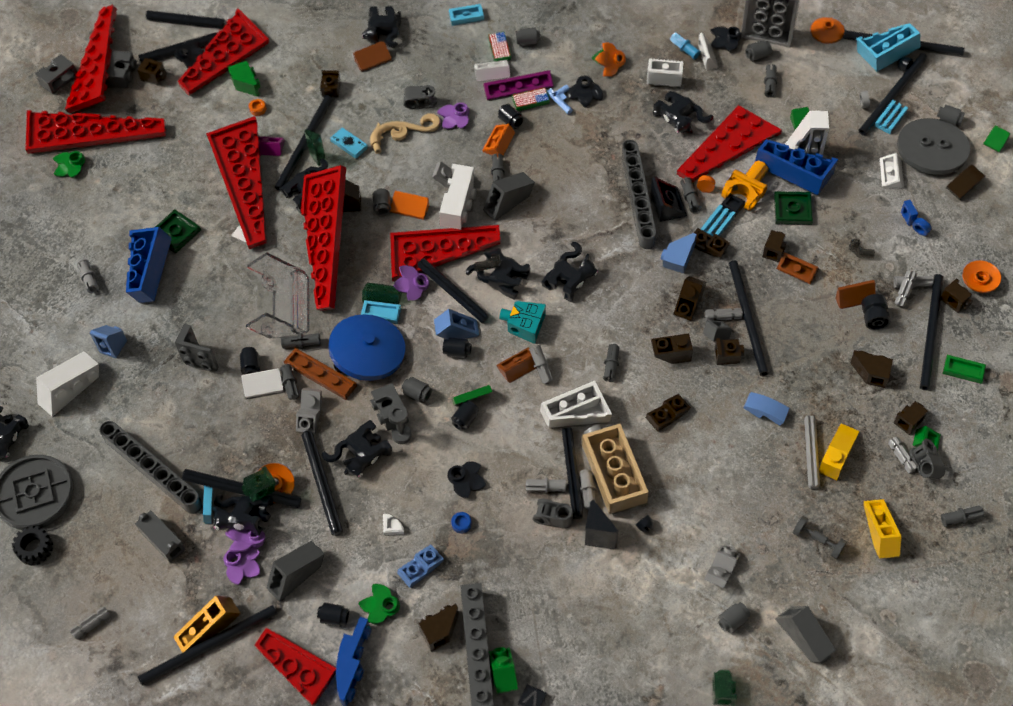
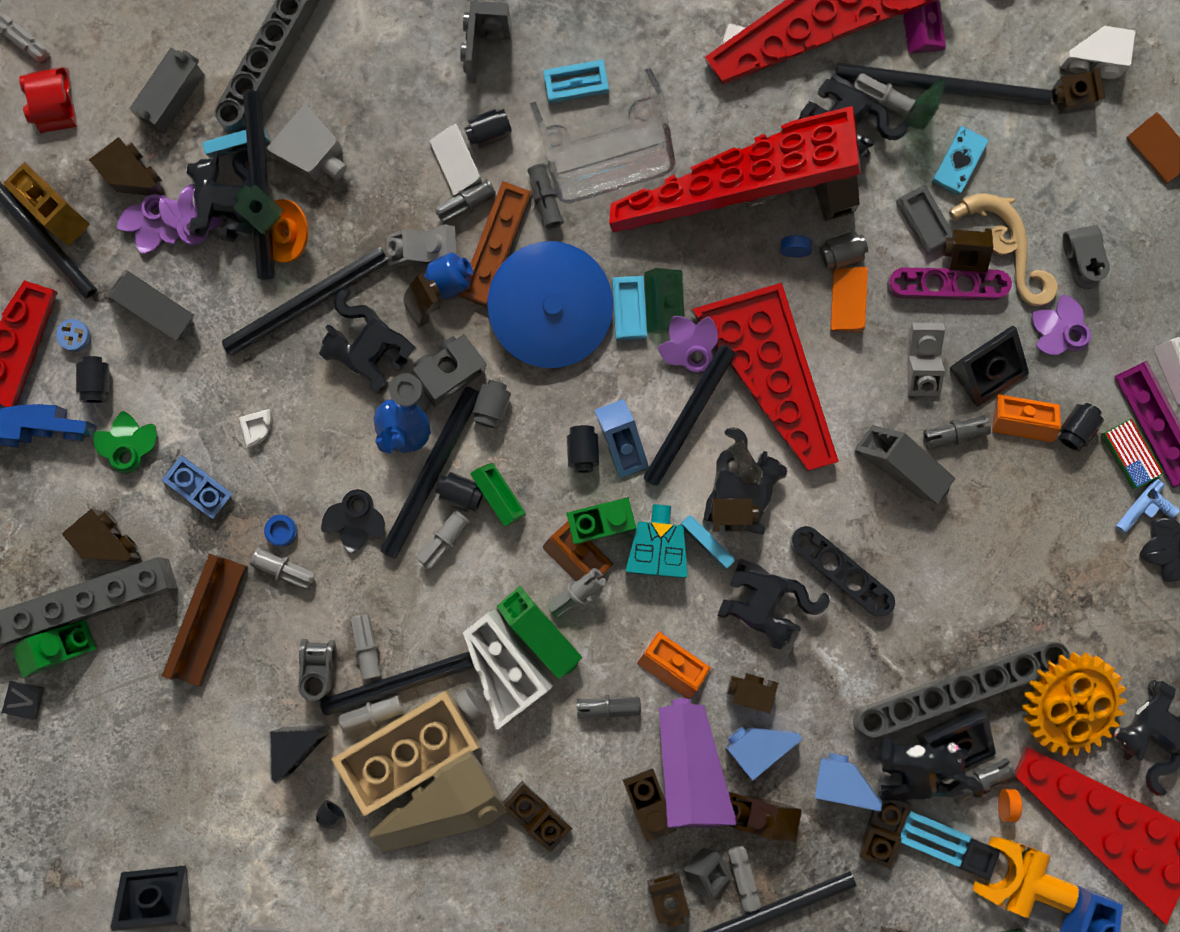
camera: 75 degrees right, 25 degrees up
(138, 610) = (48, 99): none -> red cylinder
(203, 570) = (124, 172): none -> dark brown slope
(226, 459) = (308, 147): none -> light grey torso
(236, 326) = (576, 69): none -> medium azure tile
(299, 625) = (73, 335): none -> medium blue tile
(300, 166) = (884, 95): none -> light grey axle
(312, 70) = (1106, 50): none -> white slope
(332, 395) = (450, 274): none -> blue head
(343, 410) = (422, 299): none -> dark brown slope
(371, 223) = (796, 246): none -> blue tile
(376, 164) = (925, 218): none -> dark grey tile
(400, 144) = (969, 250): none -> dark brown brick
(413, 159) = (949, 284): none -> magenta beam
(415, 437) = (400, 427): none -> blue hair
(449, 432) = (430, 473): none -> black axle
(458, 198) = (870, 379): white wedge -> none
(465, 147) = (992, 367): none -> black slope
(485, 524) = (282, 569): none -> light grey axle
(491, 430) = (443, 539): none -> light grey axle
(502, 339) = (601, 521): none -> green slope
(507, 574) = (204, 620): none -> reddish brown fence
(515, 272) = (733, 514): none -> dark brown brick
(530, 293) = (708, 542): none -> medium azure tile
(557, 383) = (539, 632): none -> green slope
(560, 236) = (844, 568): none -> black beam
(595, 327) = (674, 665): none -> orange slope
(619, 288) = (752, 693): none -> dark brown brick
(651, 291) = (760, 747): none -> medium blue slope
(652, 446) = (454, 803): none -> dark tan wedge
(654, 322) = (692, 769): none -> medium lavender slope
(657, 143) = (1087, 703): none -> light orange gear
(676, 215) = (915, 771): none -> black animal
(677, 636) = (151, 899): none -> black slope

